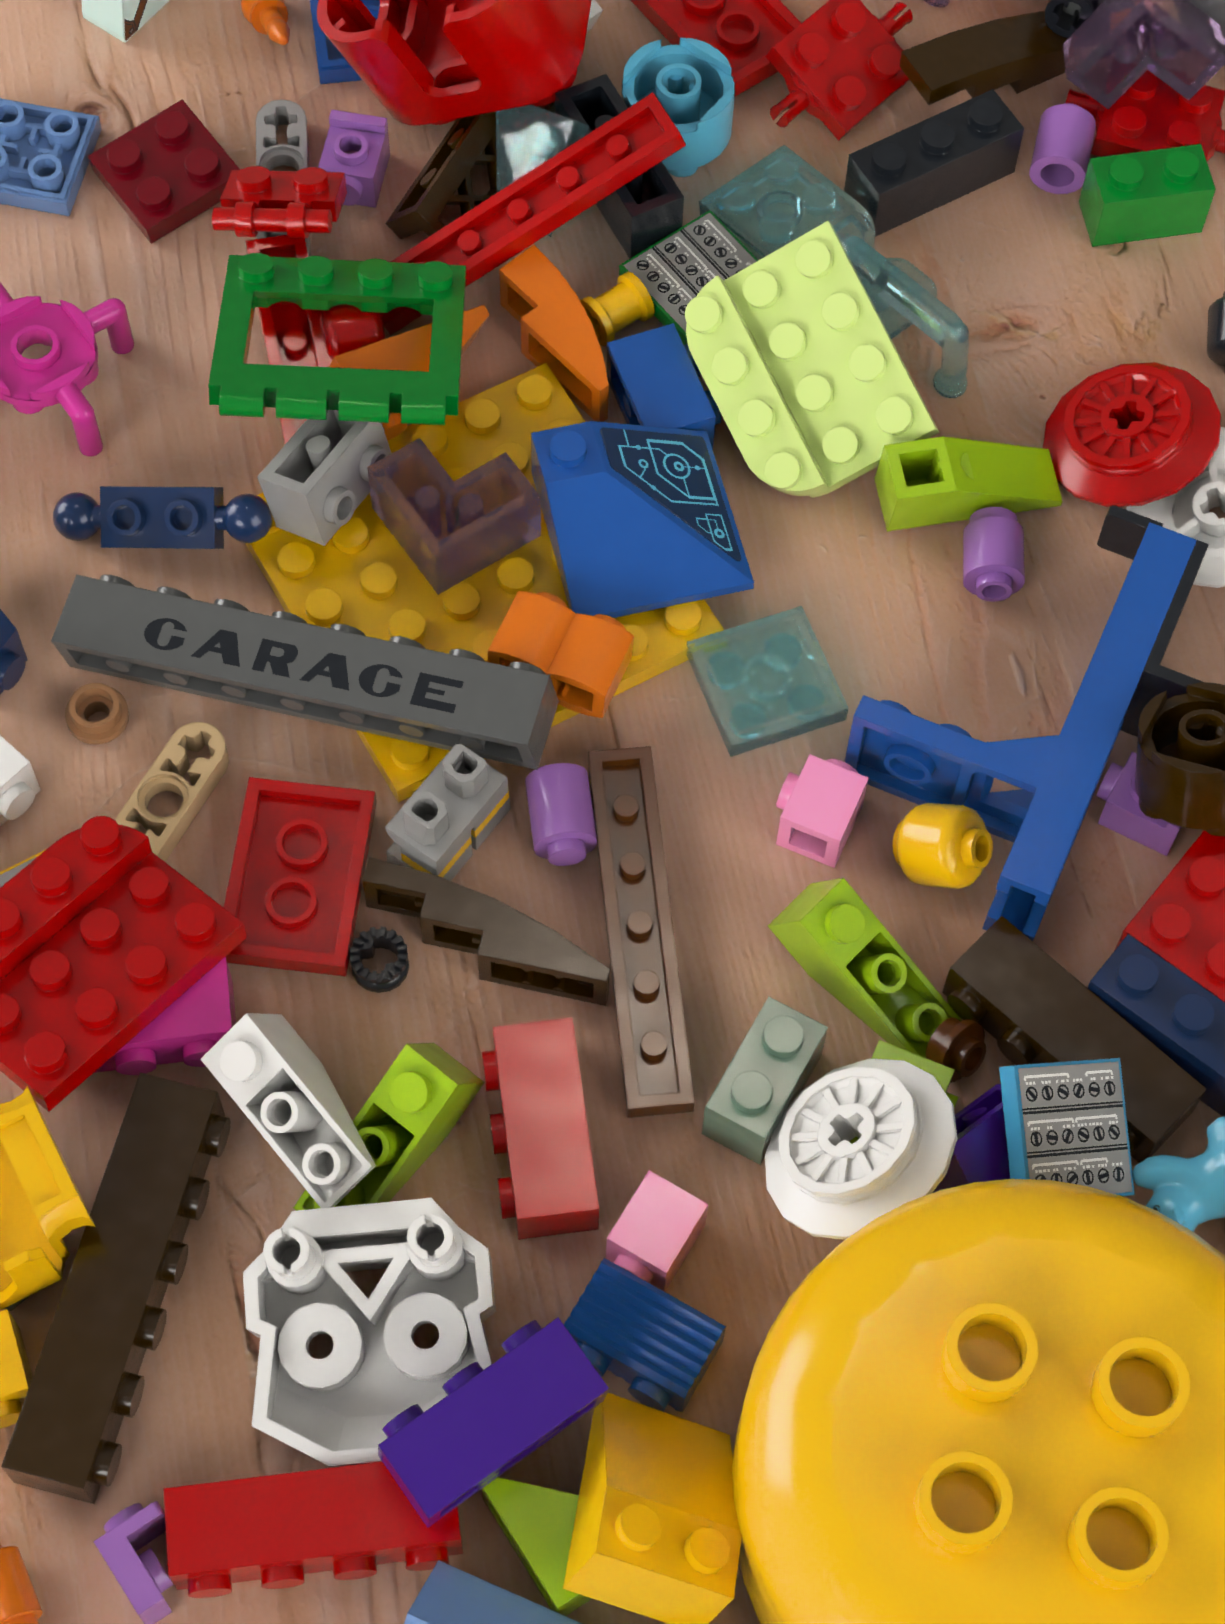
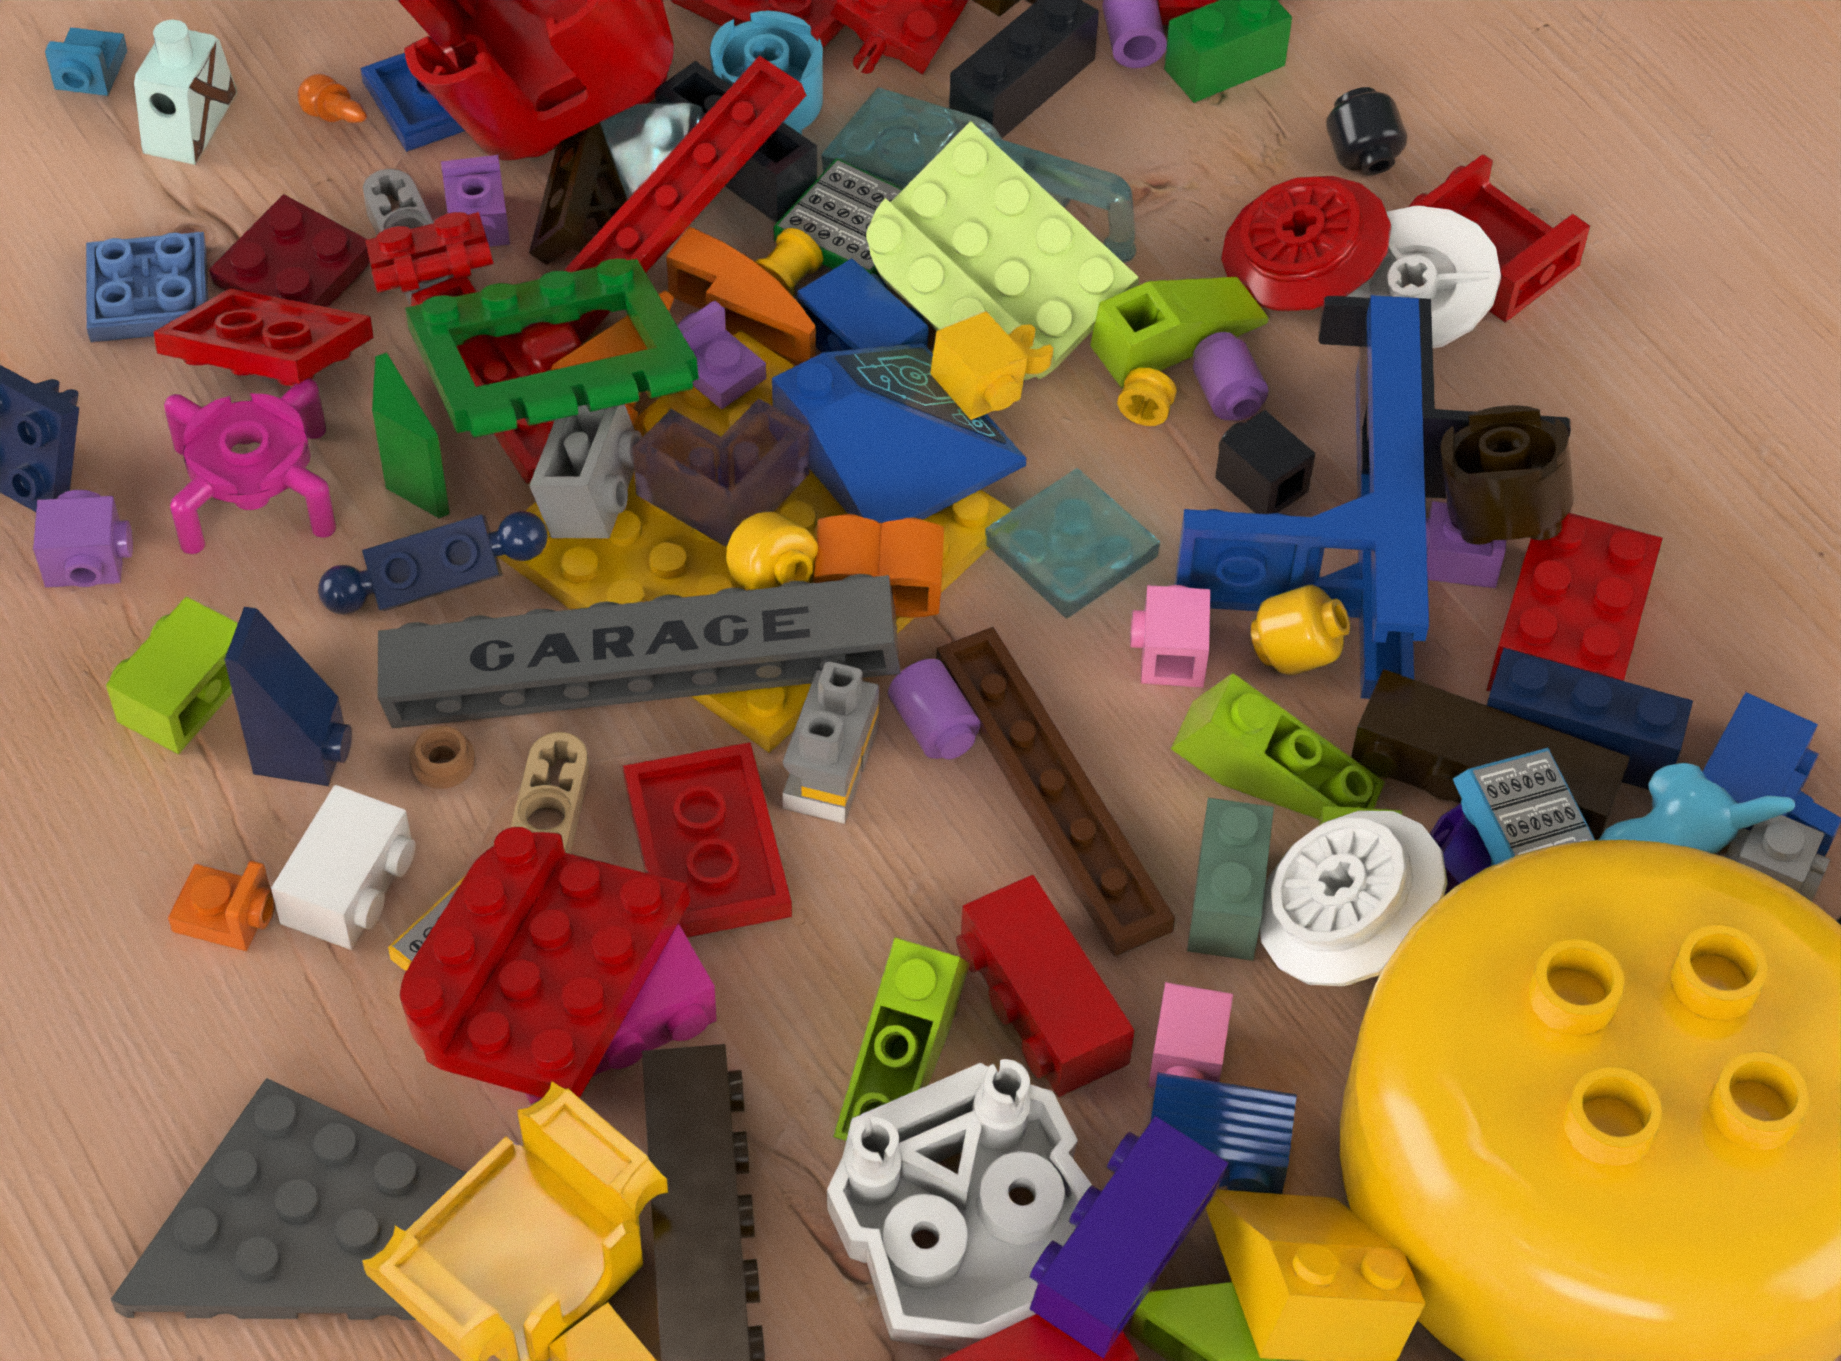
camera: 20 degrees left, 10 degrees down
(101, 242) = (264, 336): none -> red plate
(177, 384) = (407, 442): none -> green slope
(291, 1104) = (804, 1036): white slope -> none
(364, 948) = (817, 873): black bush -> none
(460, 612) = (770, 552): none -> yellow head
(501, 387) = (723, 362): none -> medium lavender bracket
(508, 943) = (938, 834): dark brown slope -> none
(746, 479) = (985, 365): none -> yellow brick
(904, 550) = (1147, 396): none -> yellow bush
(958, 1046) = (1391, 791): reddish brown plate -> none
(987, 658) = (1264, 464): none -> black brick

